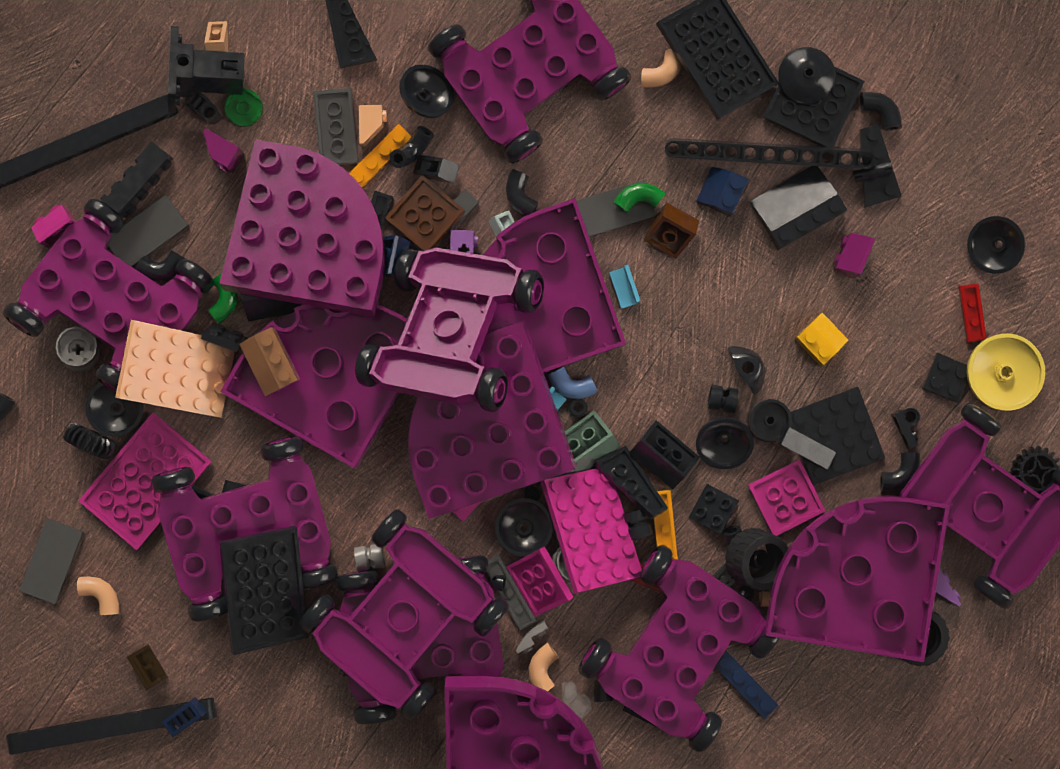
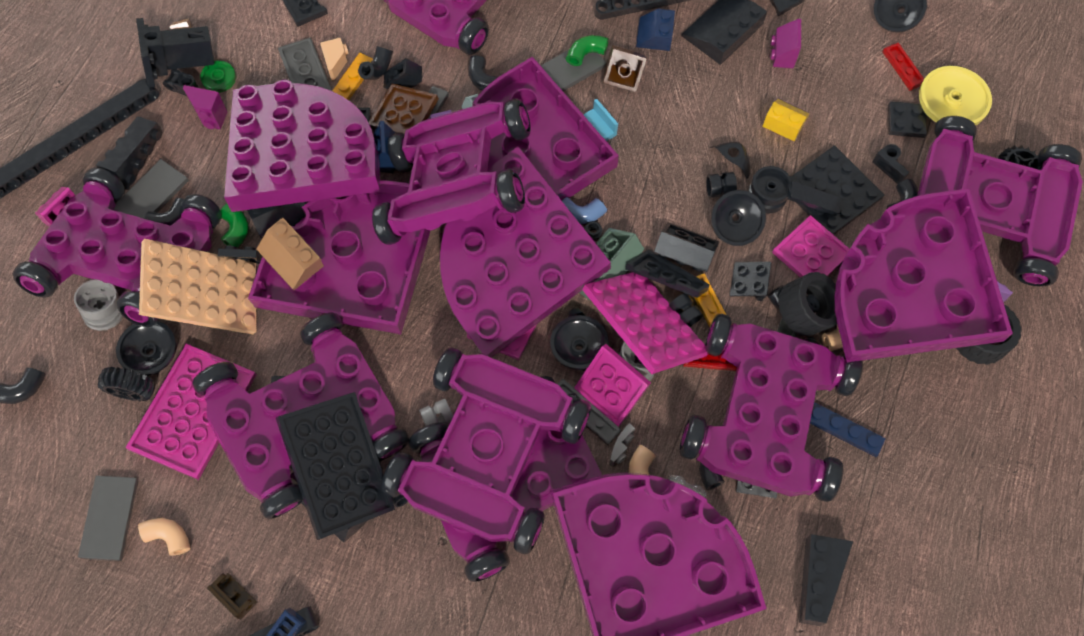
camera: 20 degrees left, 20 degrees down
(431, 85) = (376, 19): black dish -> none

